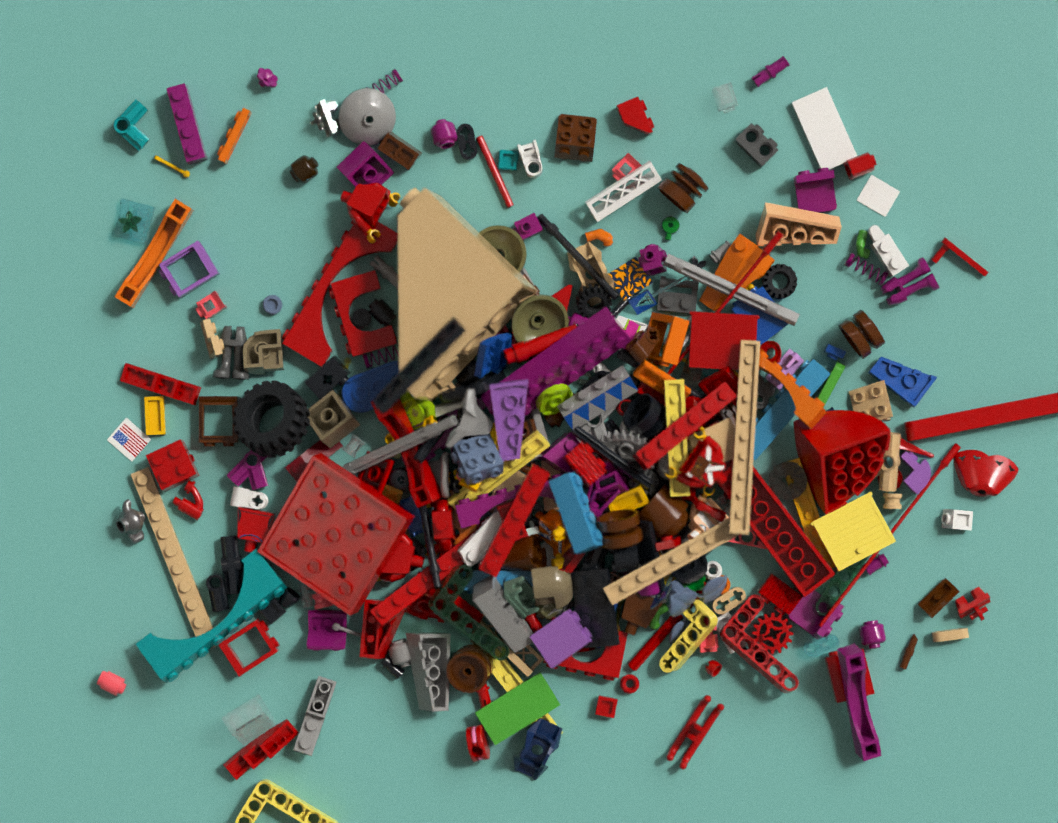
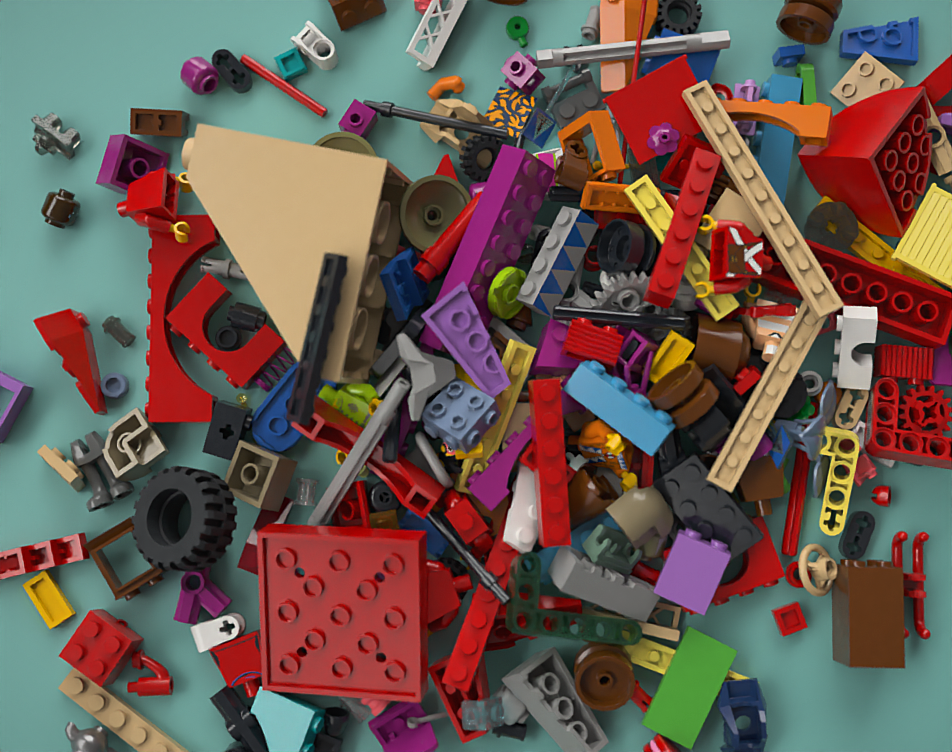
camera: 35 degrees left, 5 degrees down
(129, 439) = (35, 646): sticker -> none
(210, 305) = (40, 429): coral window -> none
(262, 260) = (71, 338): none -> red wedge
(295, 271) = (118, 331): none -> clear smoke pin
(358, 107) = (91, 123): light grey dish -> none
(382, 645) = (482, 713): none -> clear light blue bracket
(396, 74) = (83, 85): magenta piece -> none
(644, 689) = (822, 570): none -> tan piece
(654, 731) = (868, 614): none -> reddish brown brick
(678, 678) = (862, 537): none -> black beam
(714, 355) = (658, 143): none -> magenta plant
(743, 576) = (856, 326): none -> white arch

